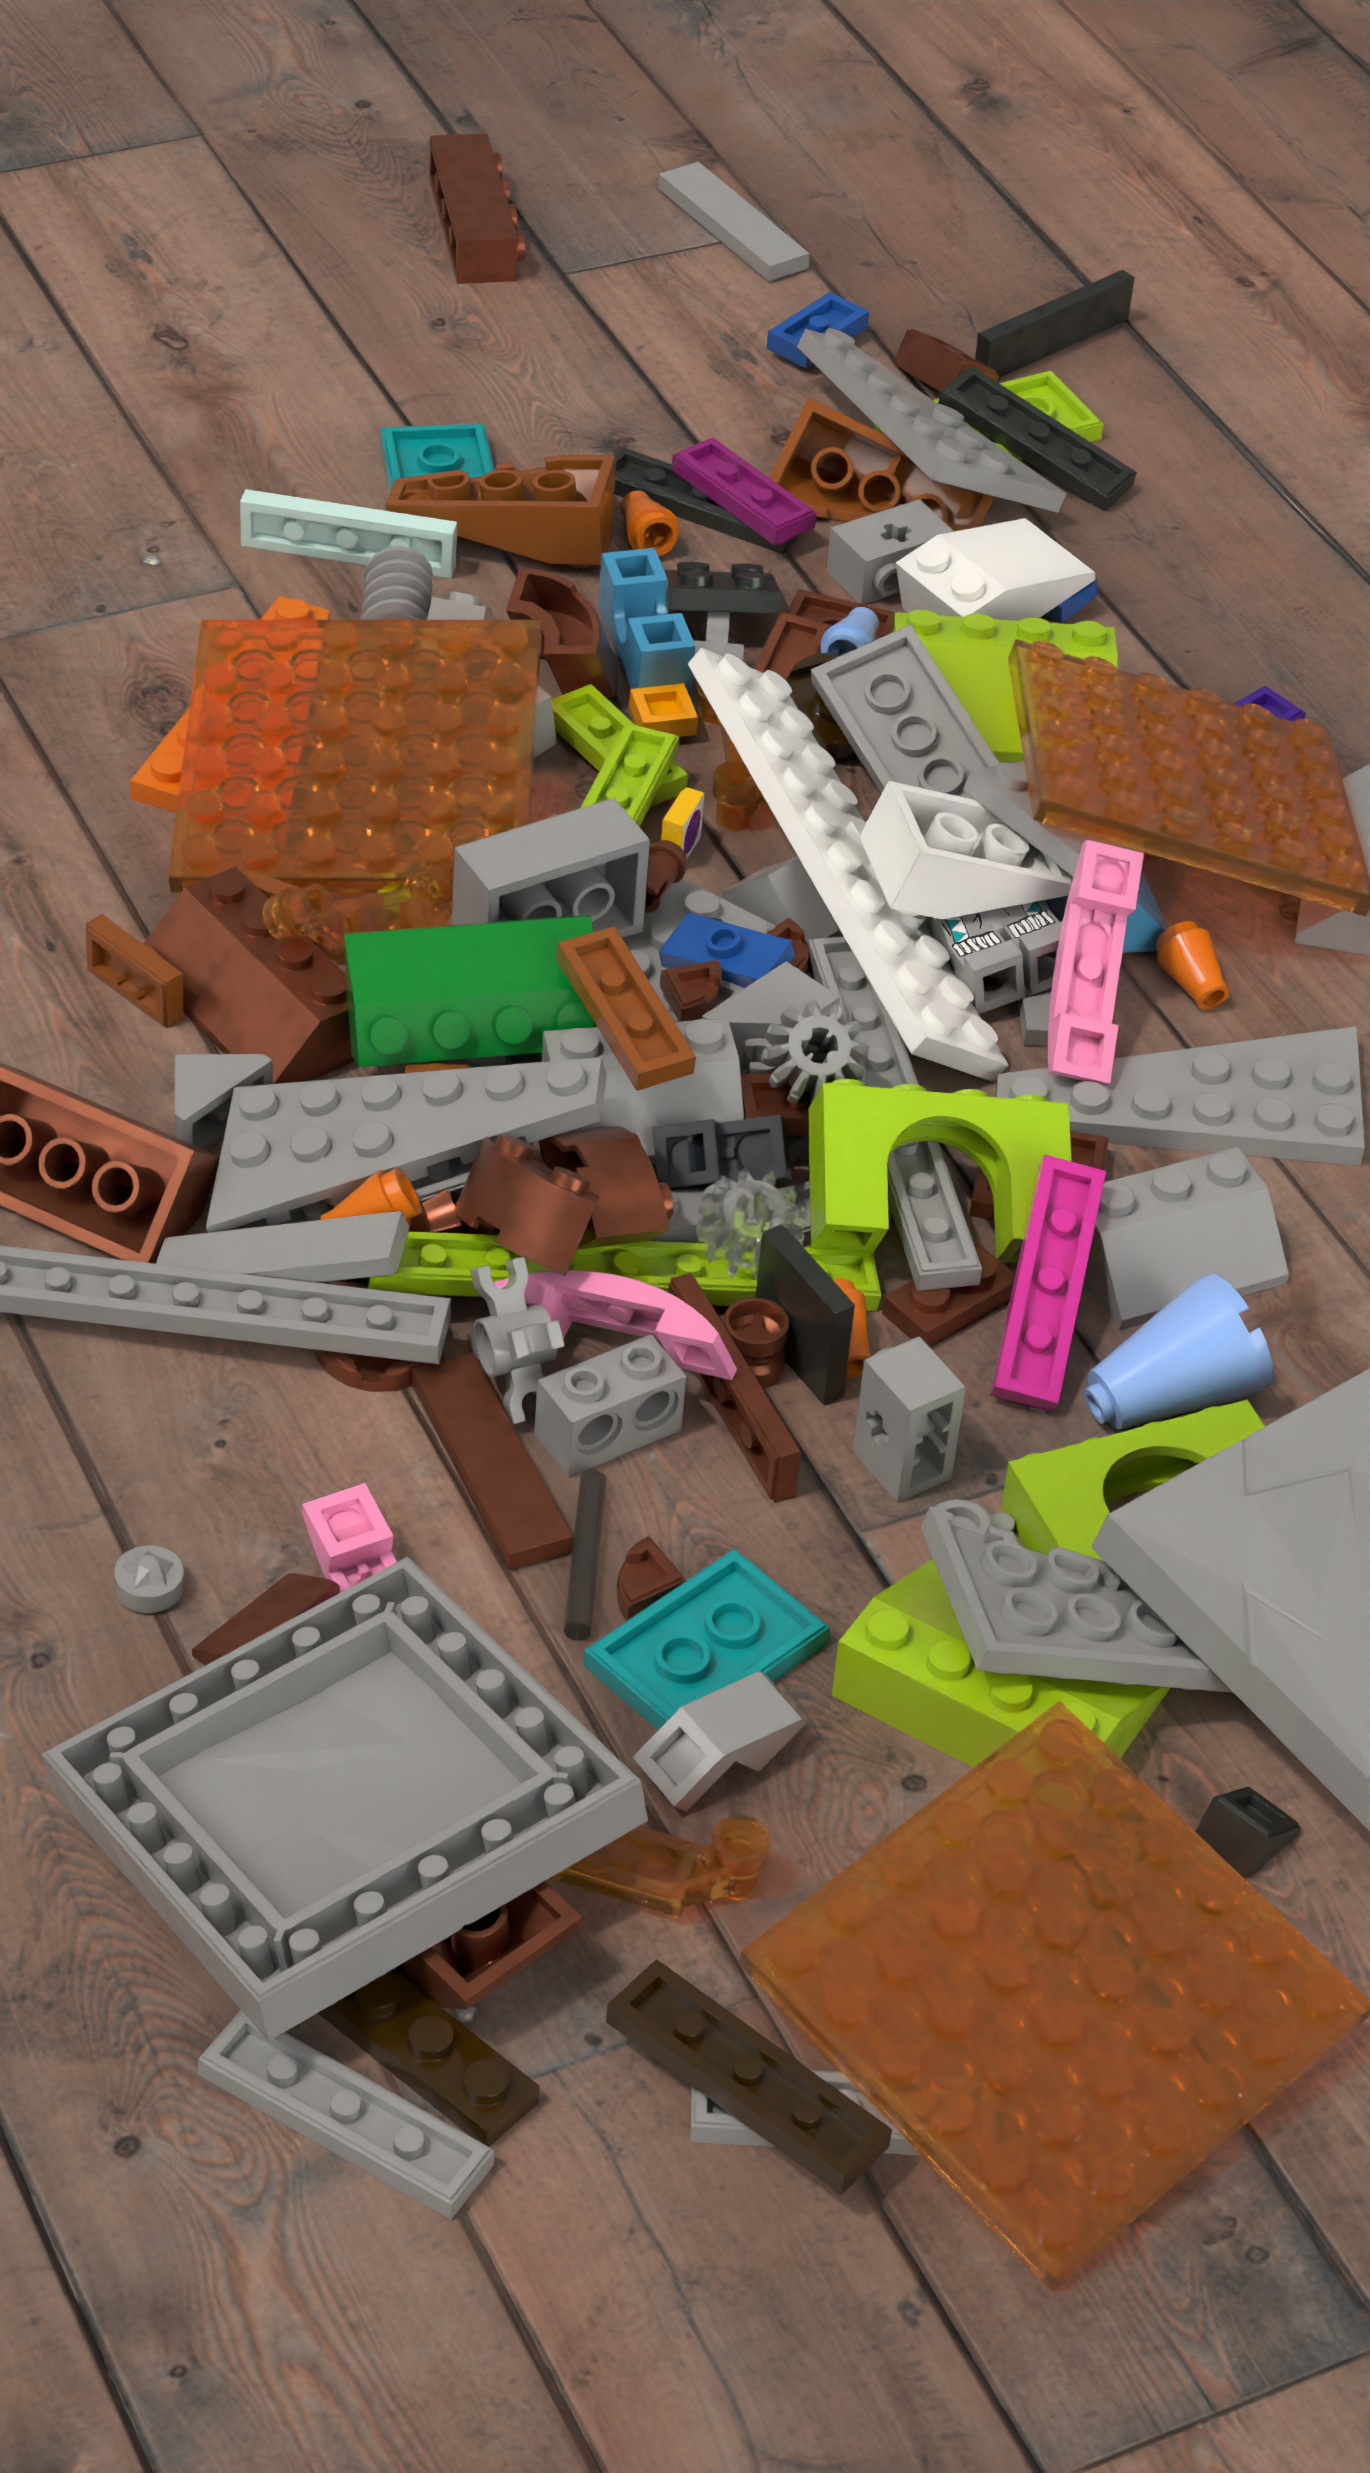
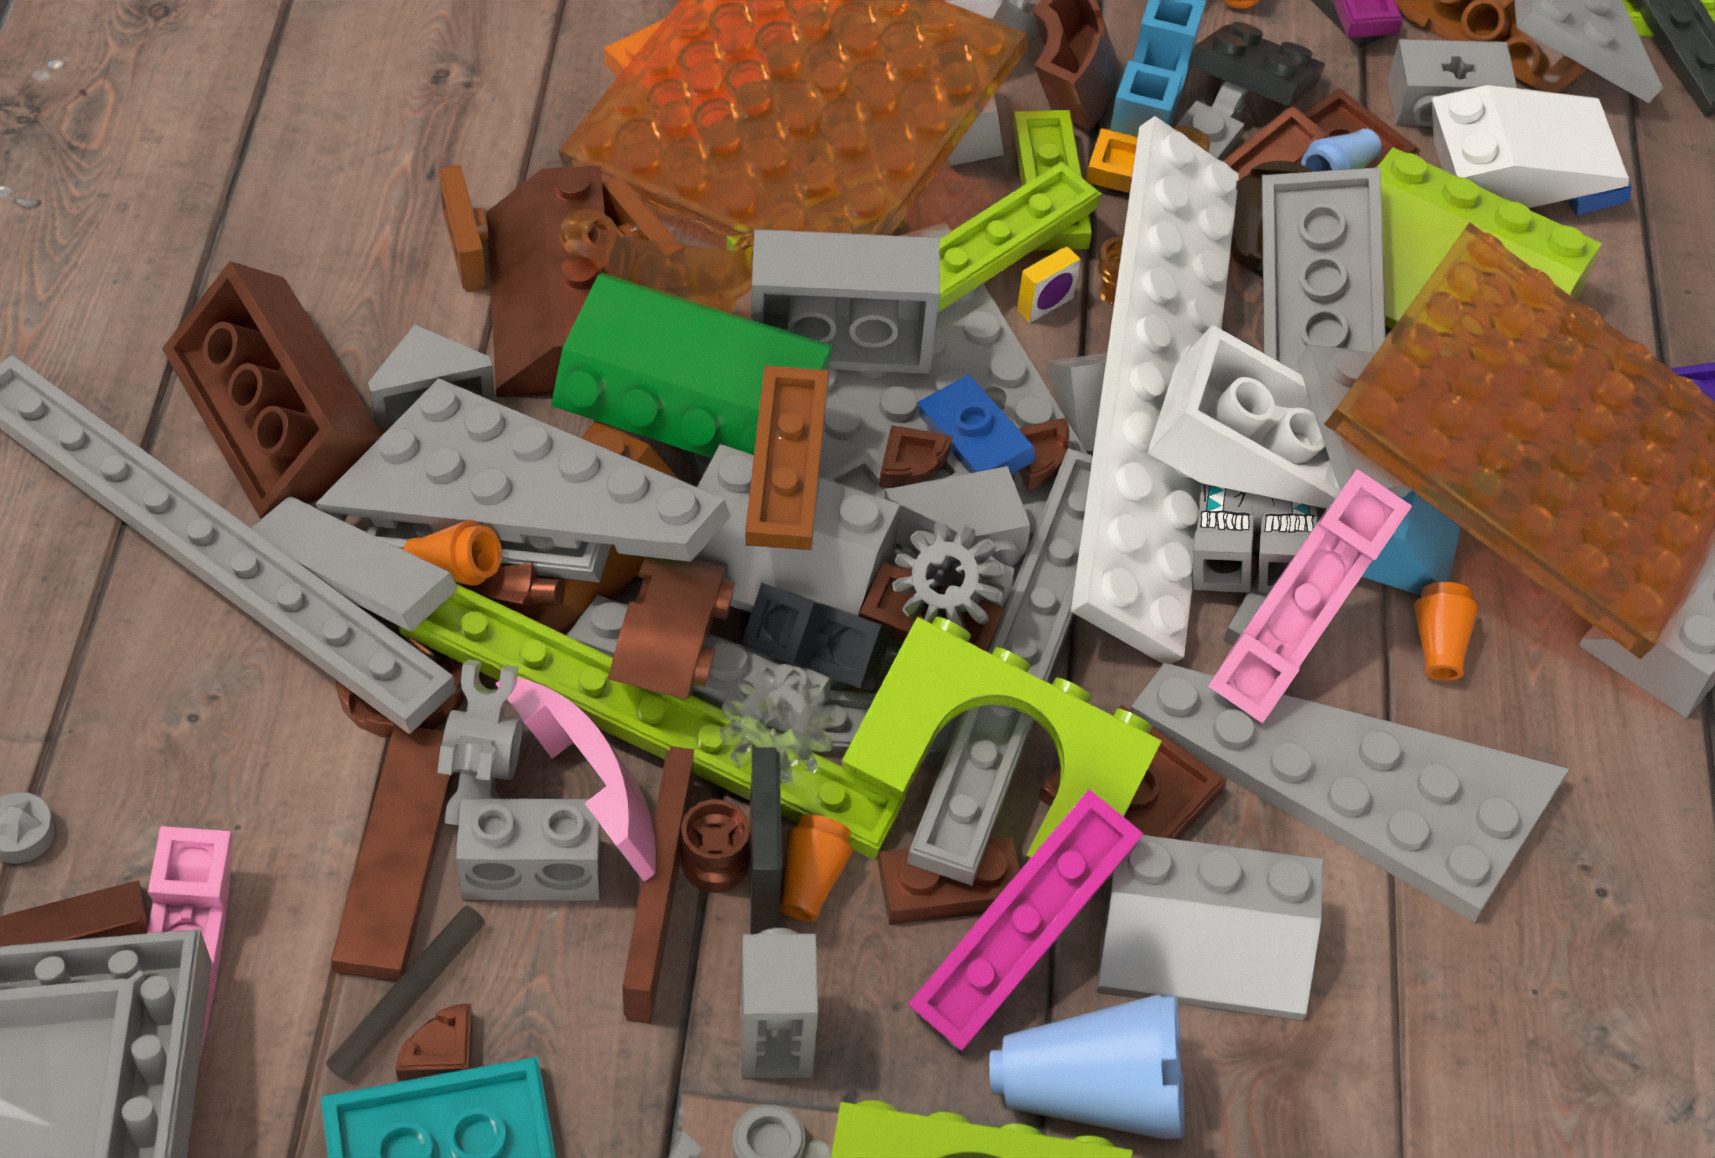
camera: 30 degrees right, 10 degrees up
(532, 1206) = (564, 621): copper brick -> none
(665, 867) = (984, 318): copper pin -> none

